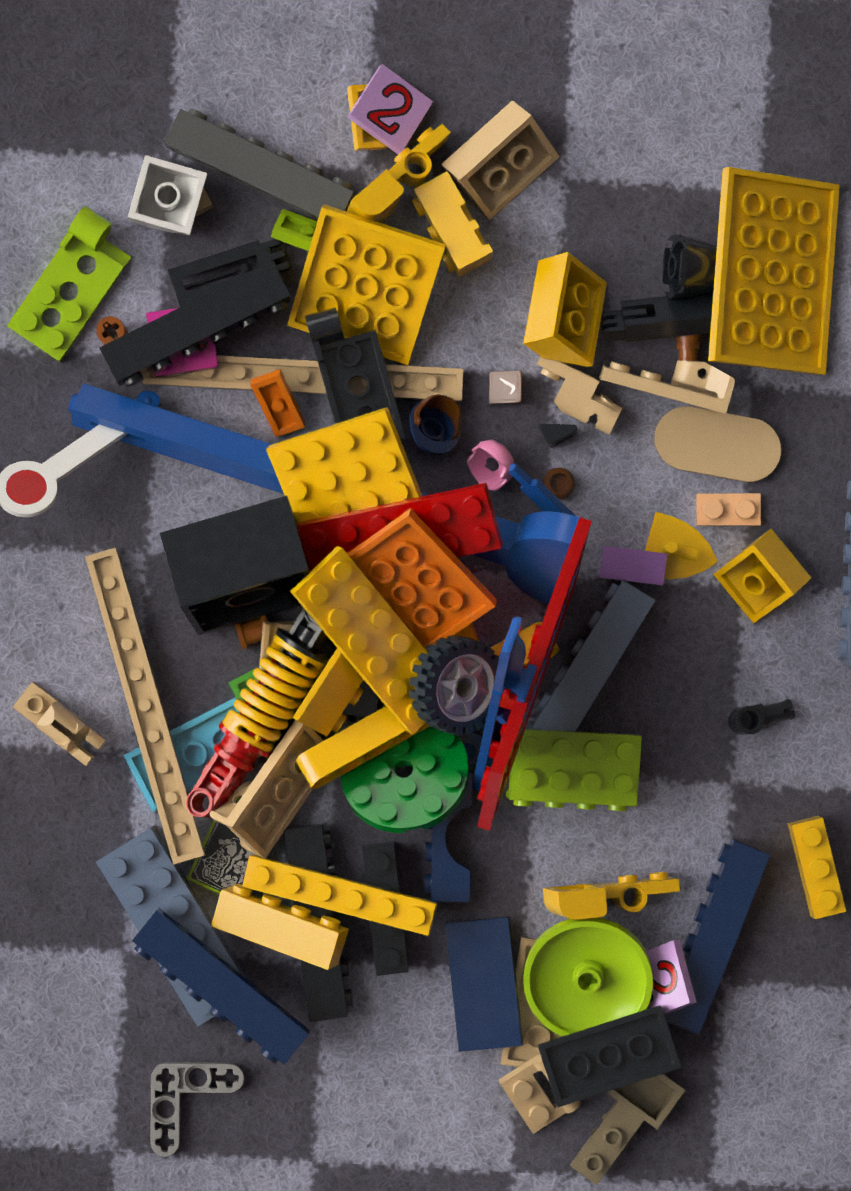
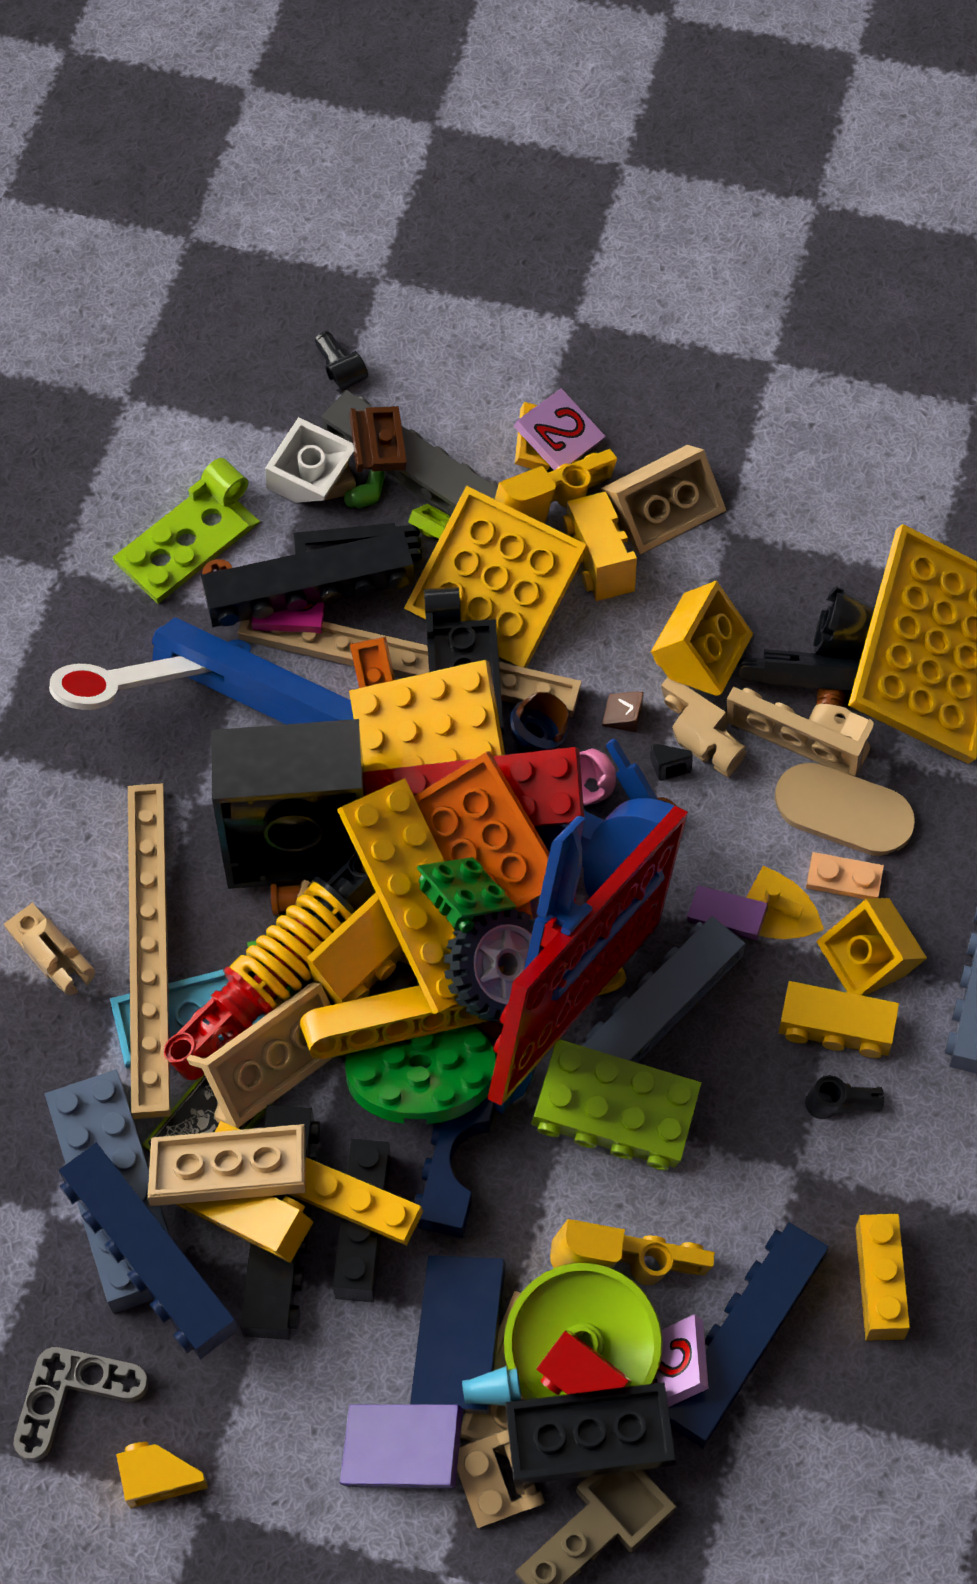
camera: 15 degrees right, 25 degrees down
(167, 74) = (341, 365): none -> black pin
(225, 164) = (378, 439): none -> reddish brown plate
(225, 208) = (366, 494): none -> bright green arm
(268, 902) = (227, 1165): none -> tan plate
(270, 1148) = (155, 1475): none -> yellow slope
(416, 638) = (462, 891): none -> green hinge
(460, 1086) = (401, 1446): none -> tile
(525, 1031) = (493, 1388): none -> medium azure cone
(592, 1007) = (578, 1368): none -> red slope
(745, 648) = (838, 1019): none -> yellow brick

